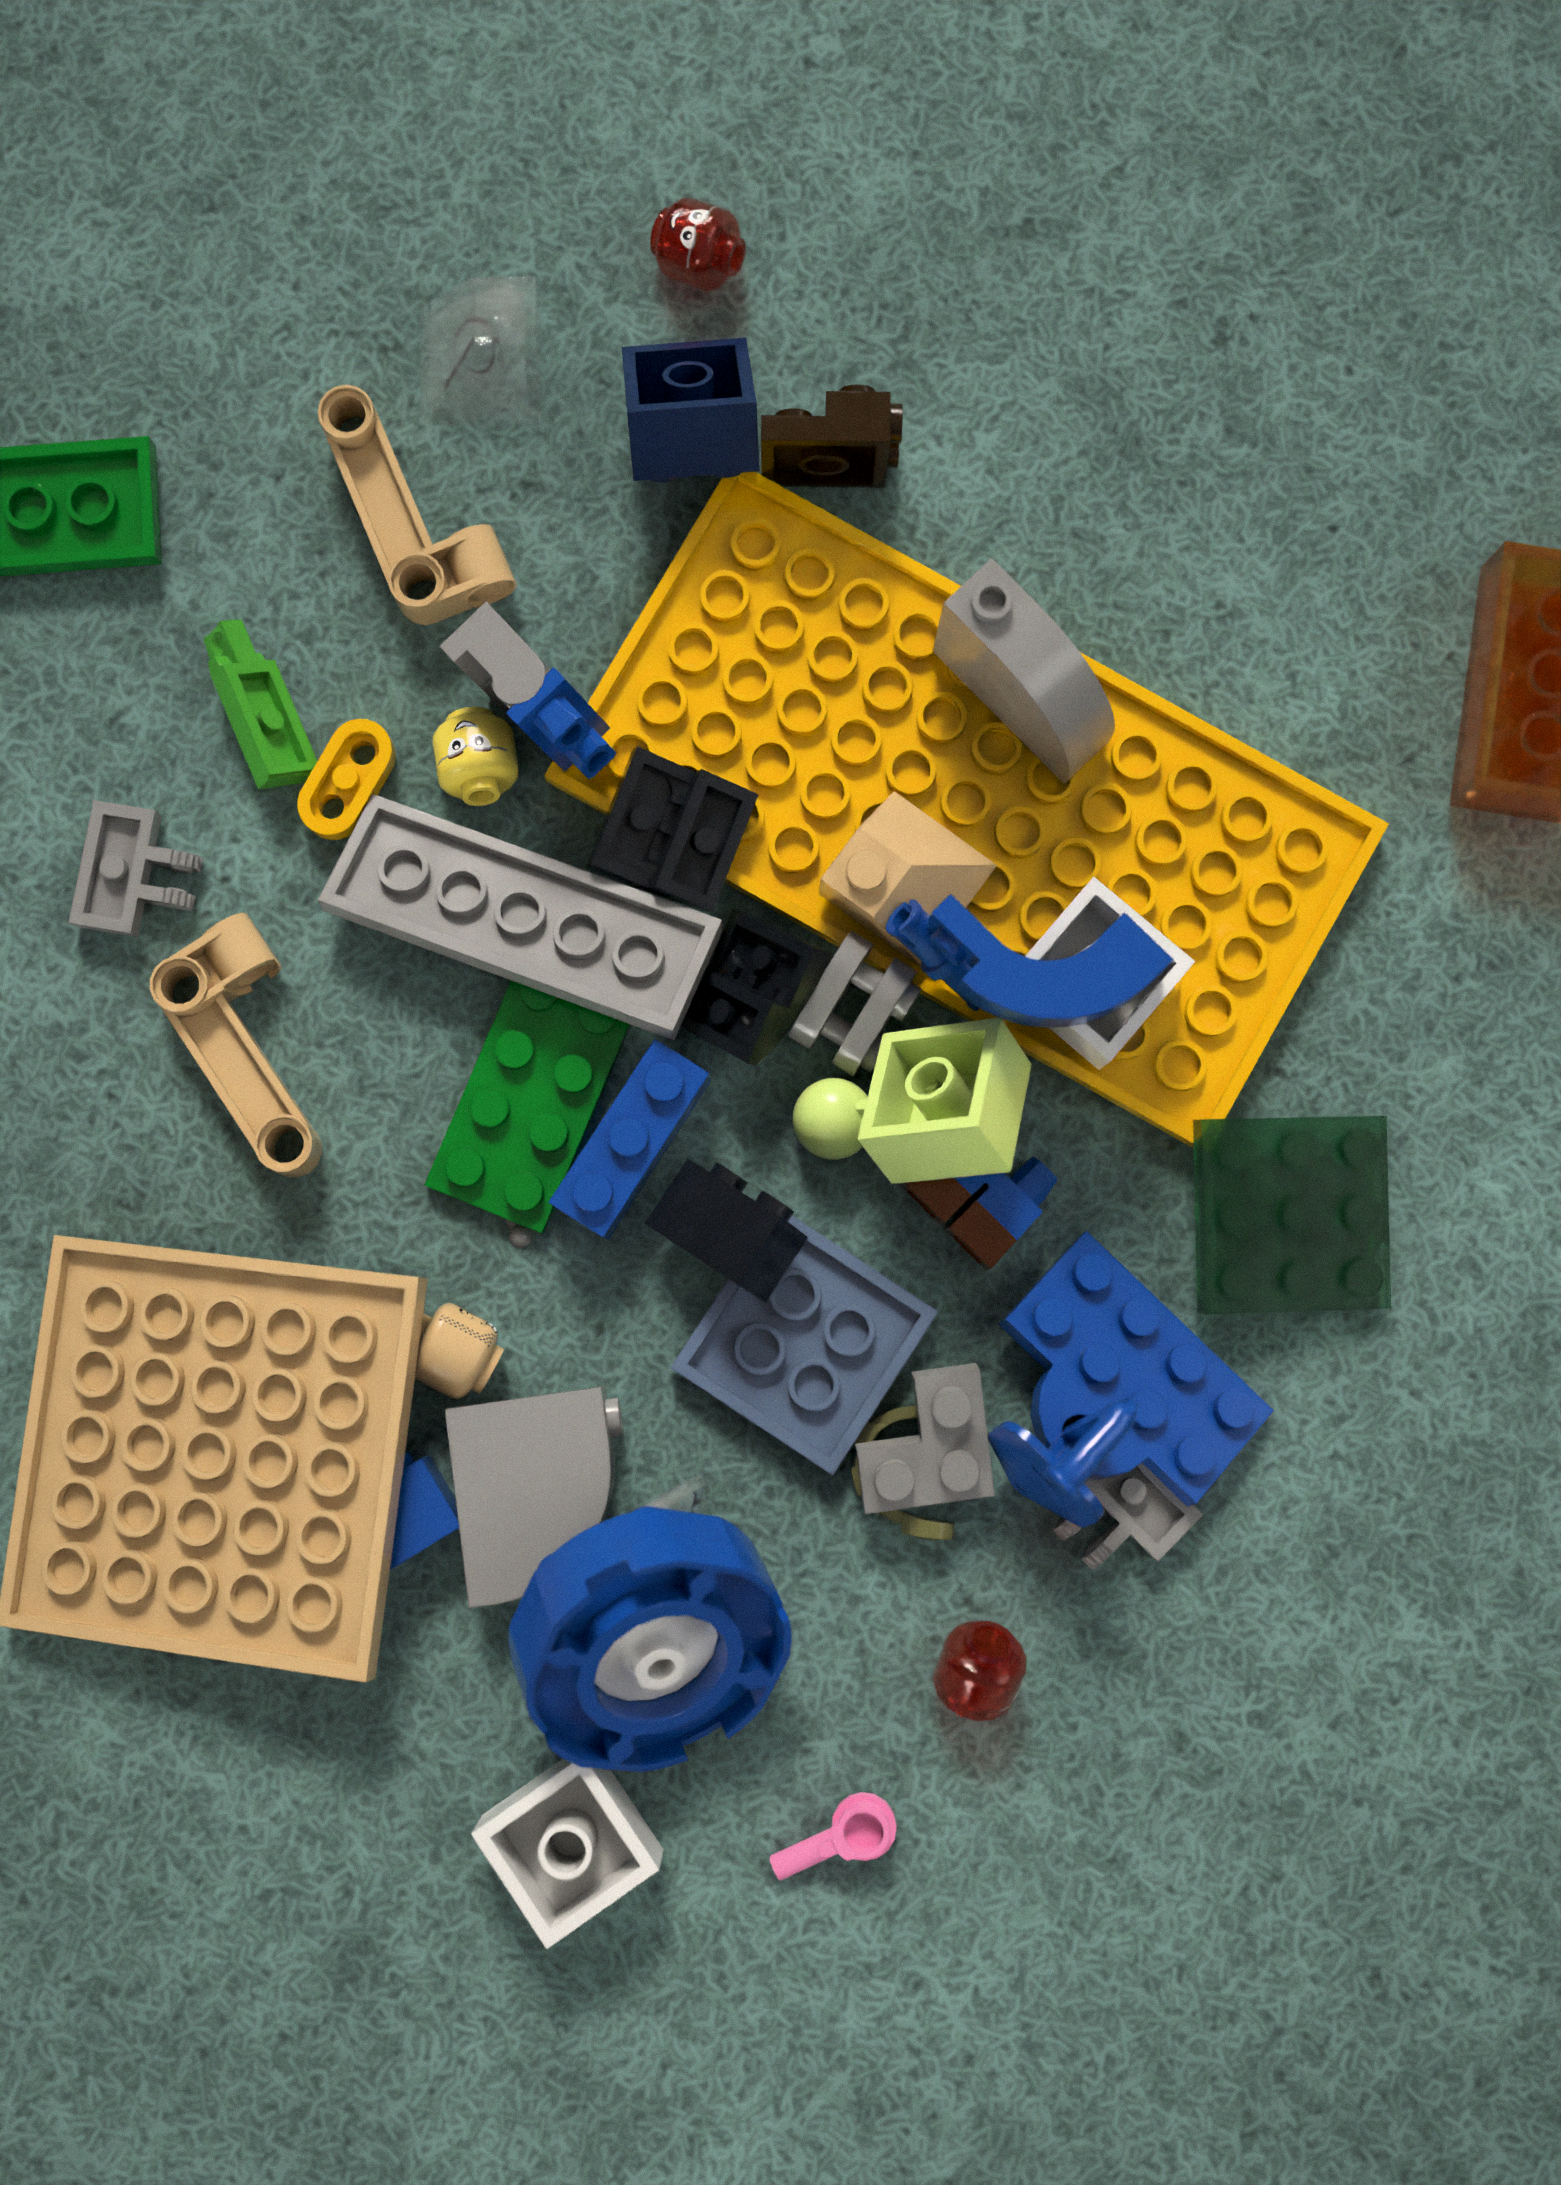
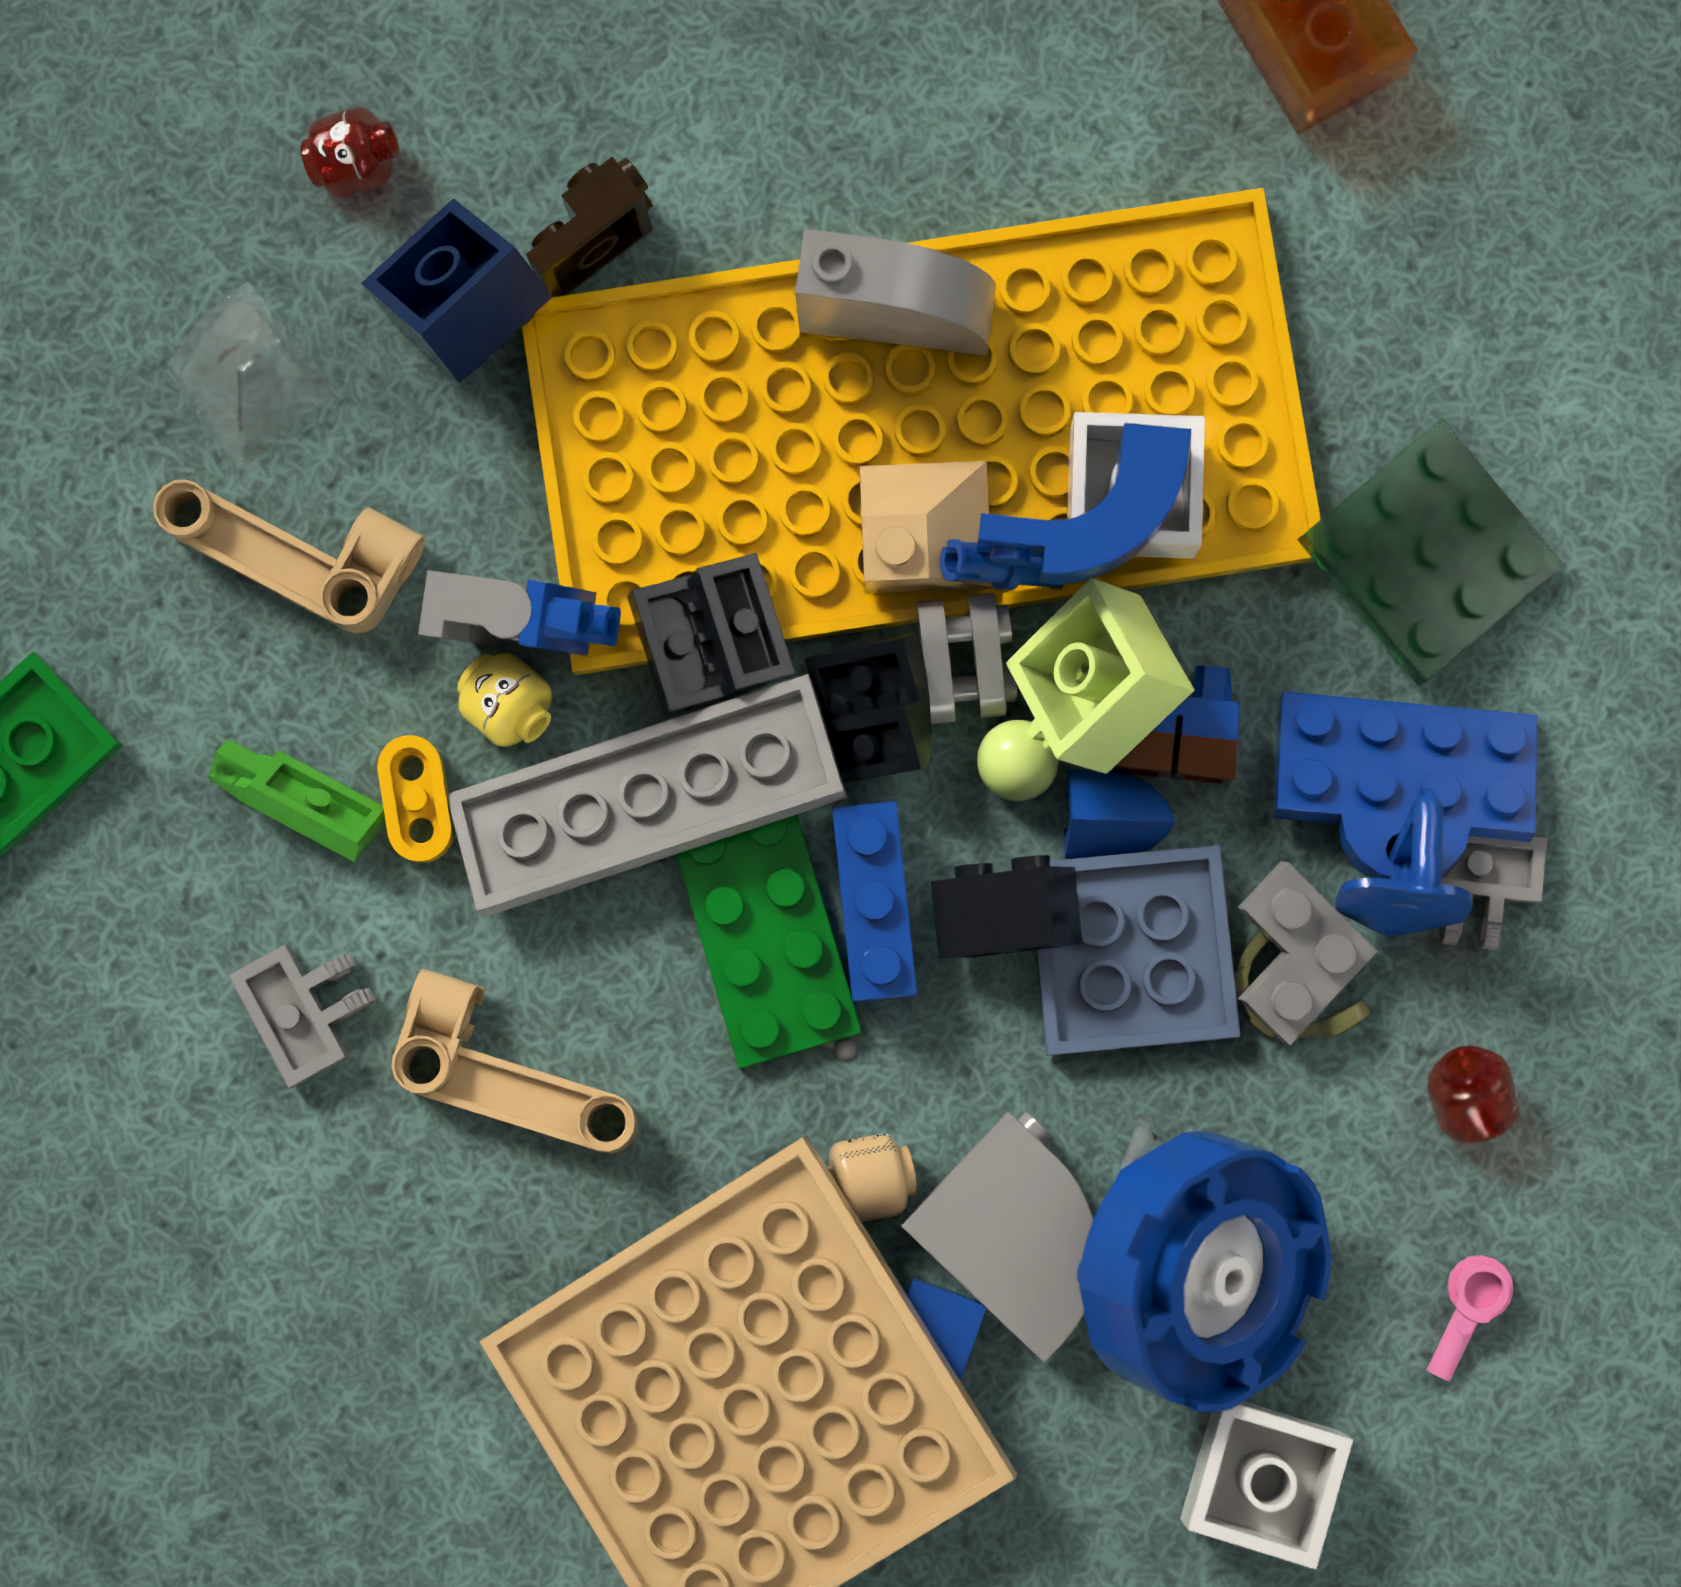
camera: 30 degrees left, 0 degrees up
(874, 1221) = (1113, 815): none -> blue brick

